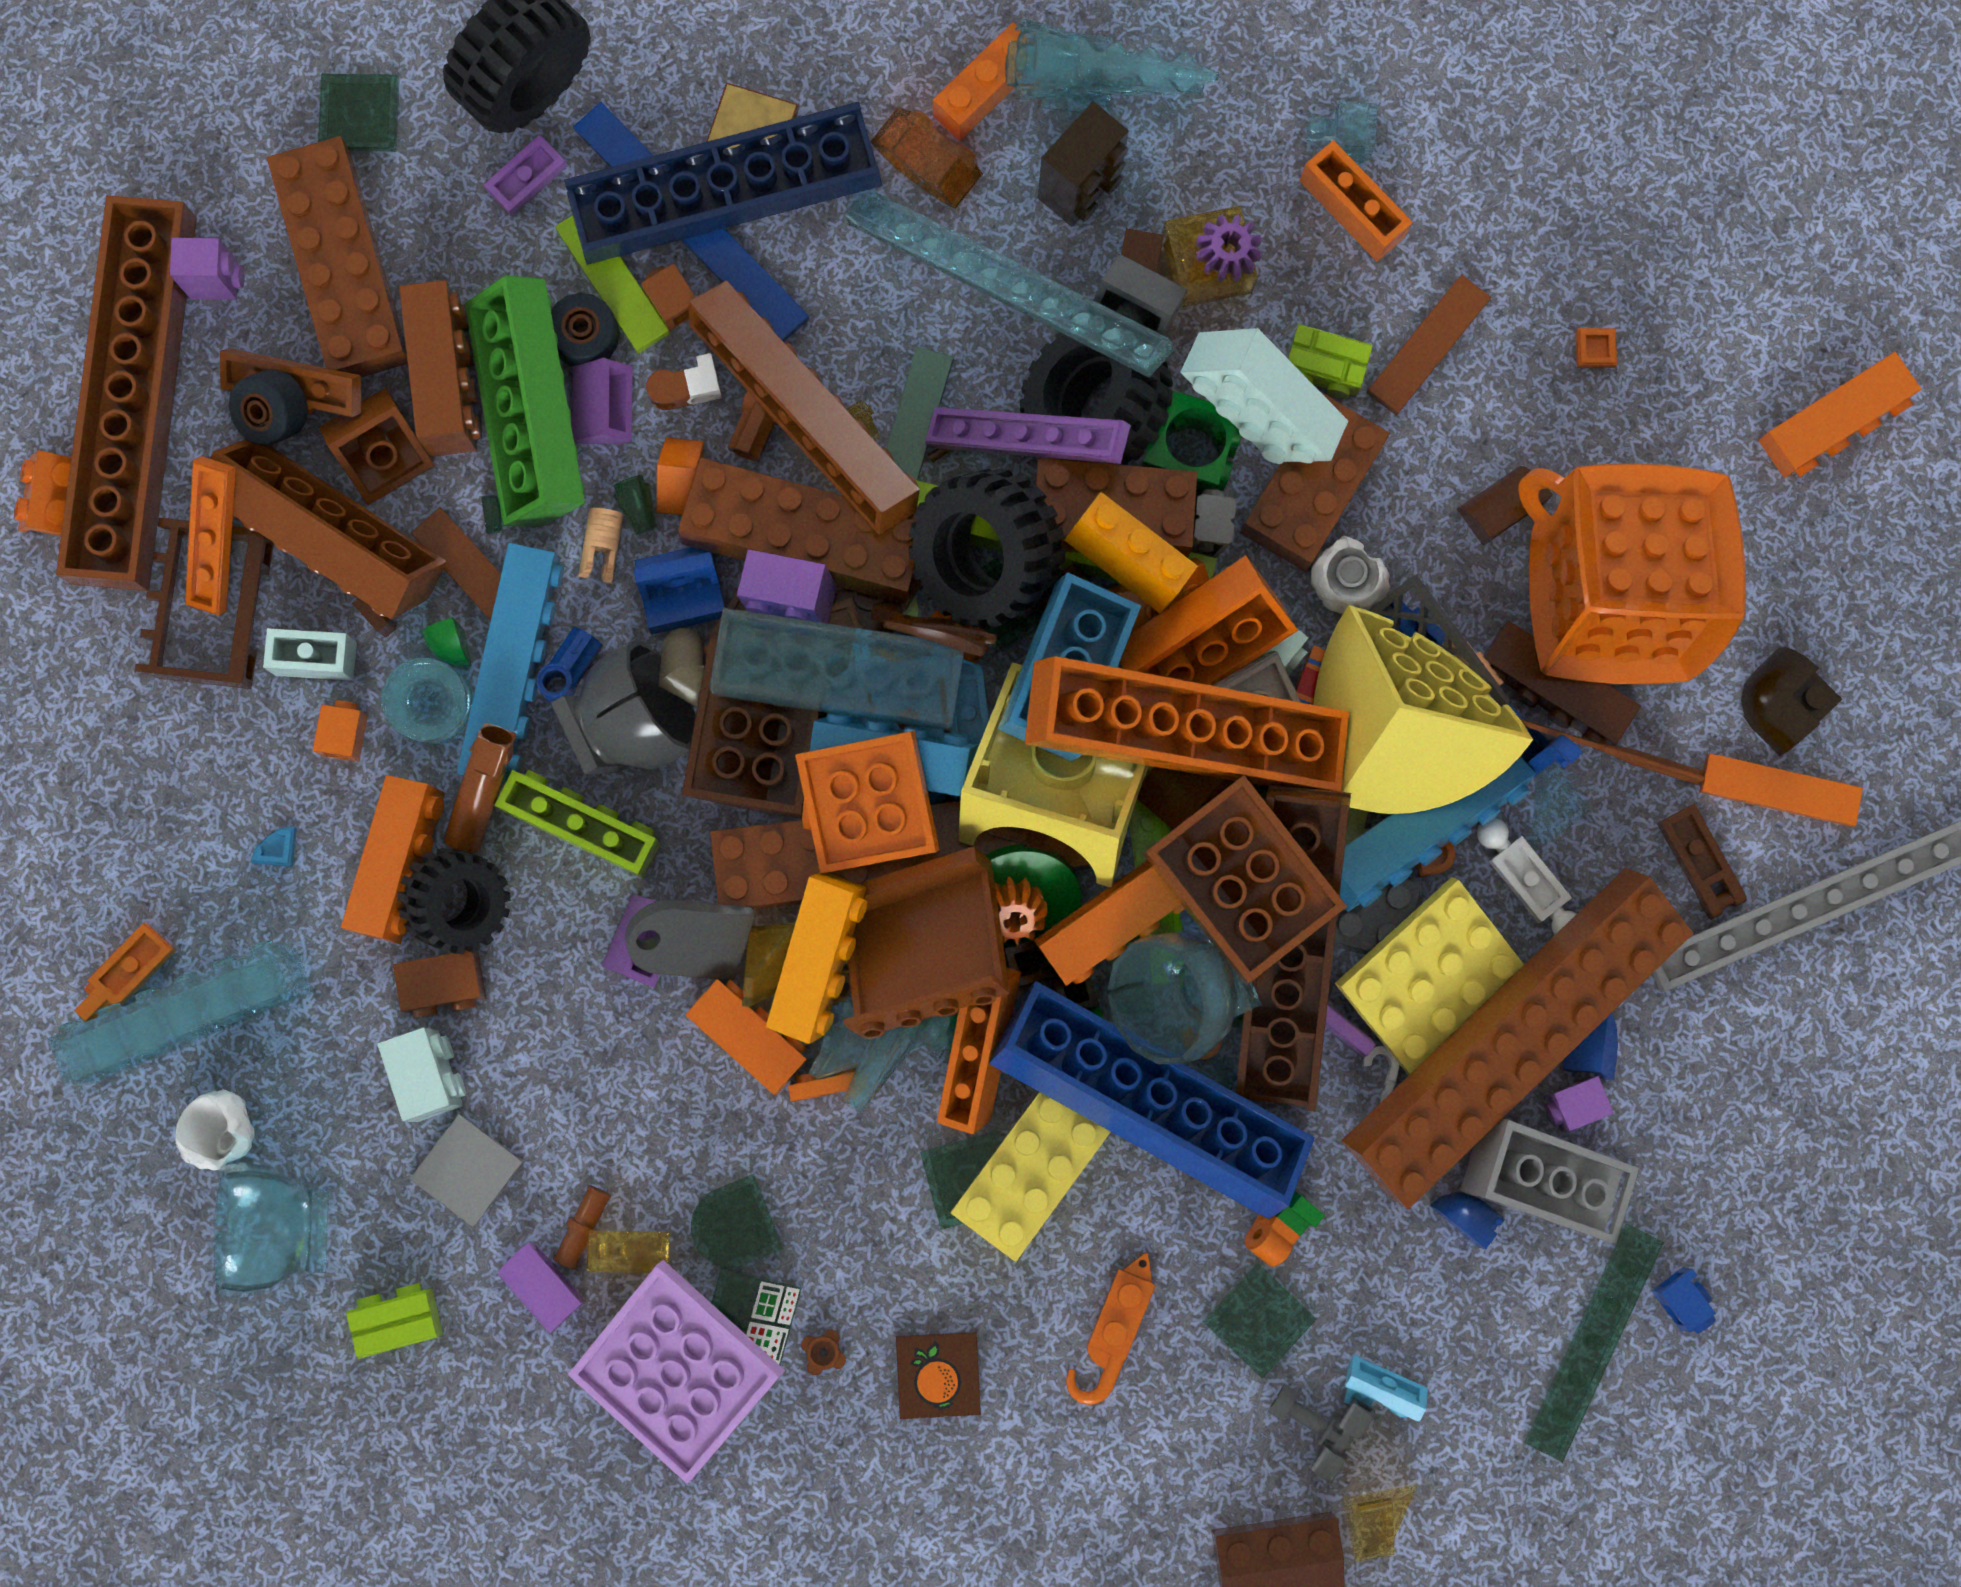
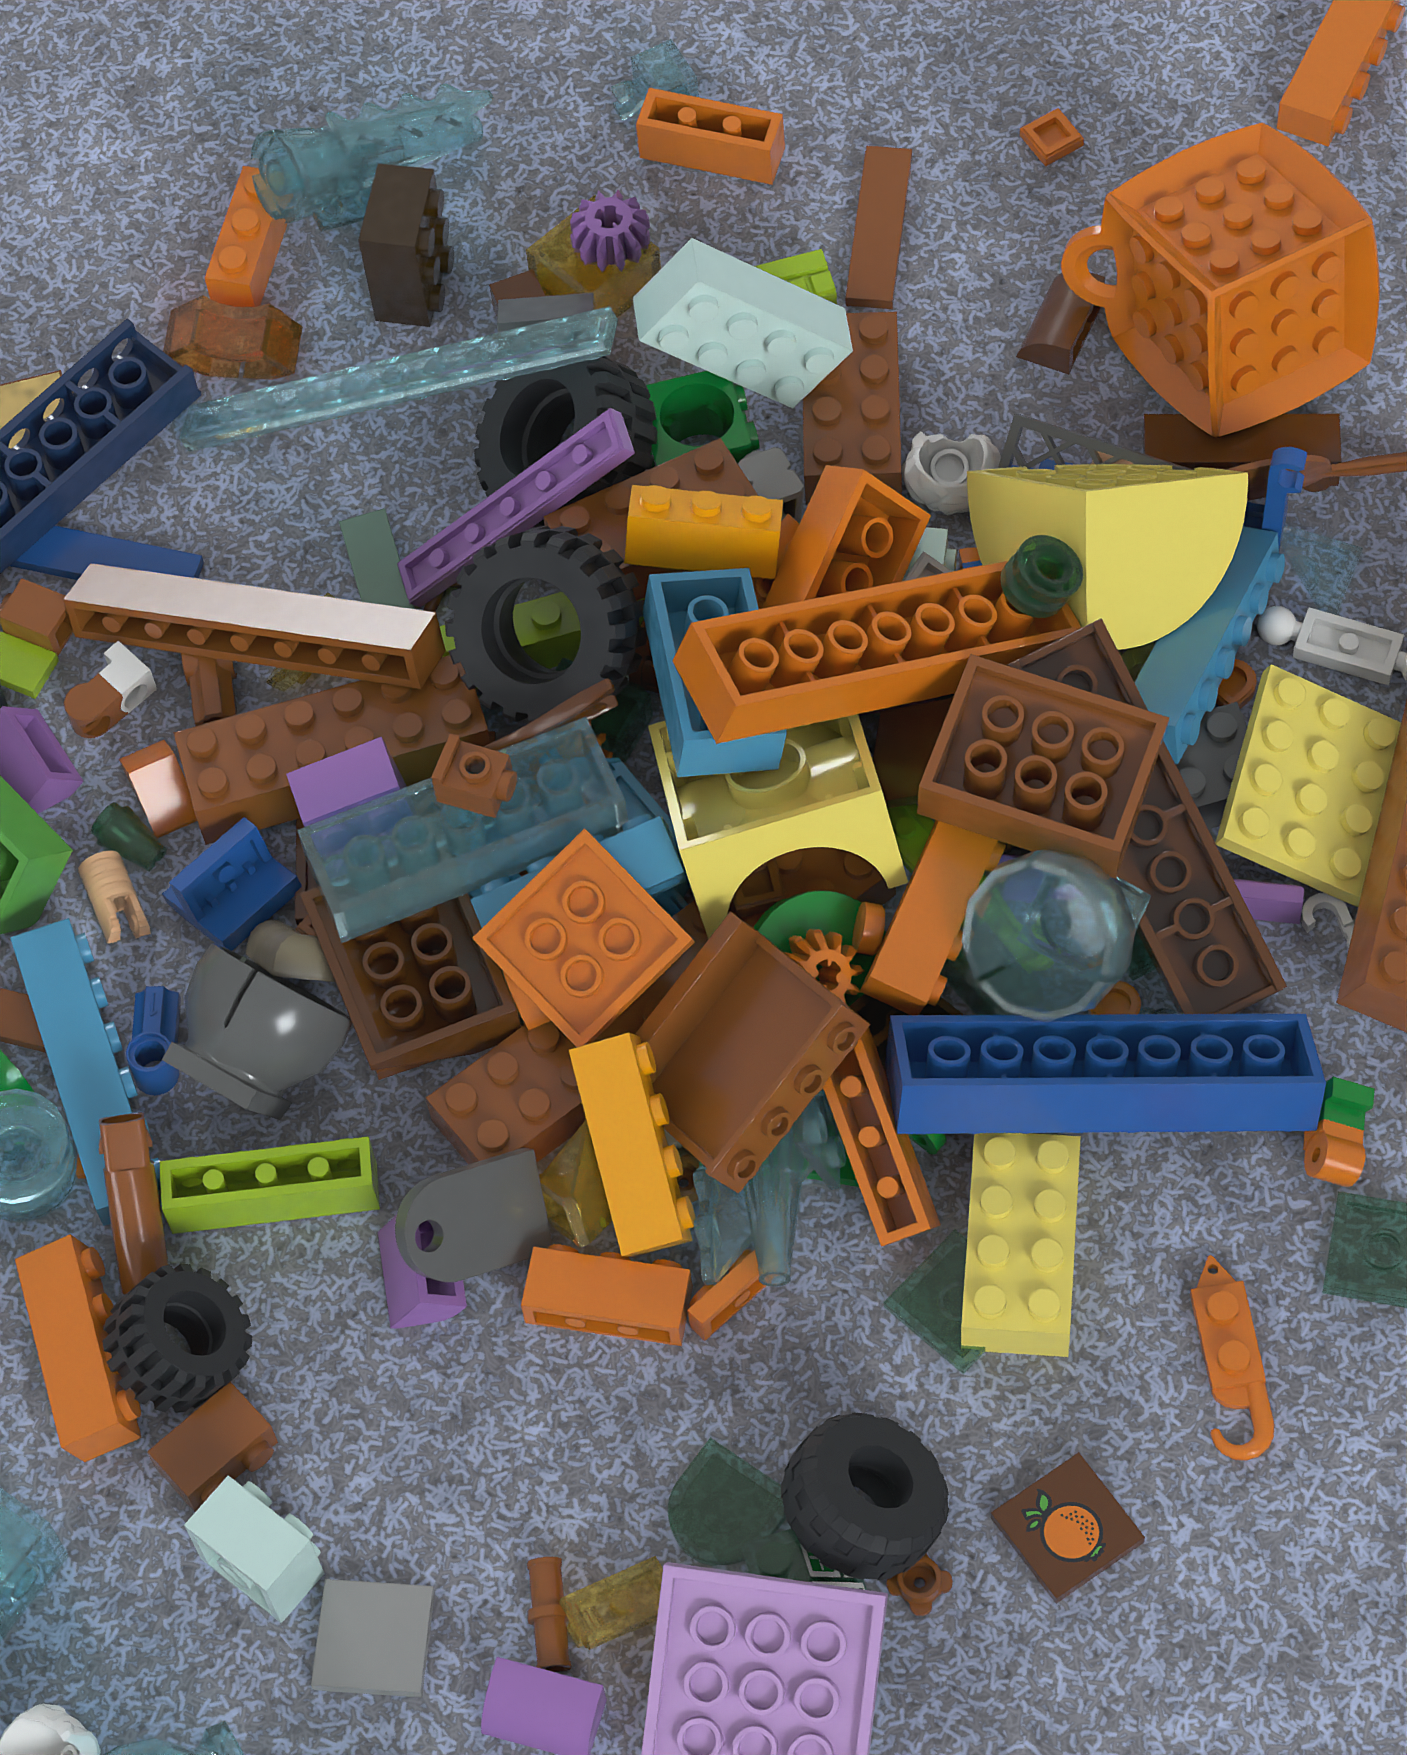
camera: 20 degrees left, 20 degrees down
(850, 1295) = (842, 1525): none -> black tyre
(854, 632) = (473, 792): none -> dark orange brick
(1066, 901) = (868, 928): none -> orange tile
(1351, 741) = (1041, 576): none -> clear green wheel

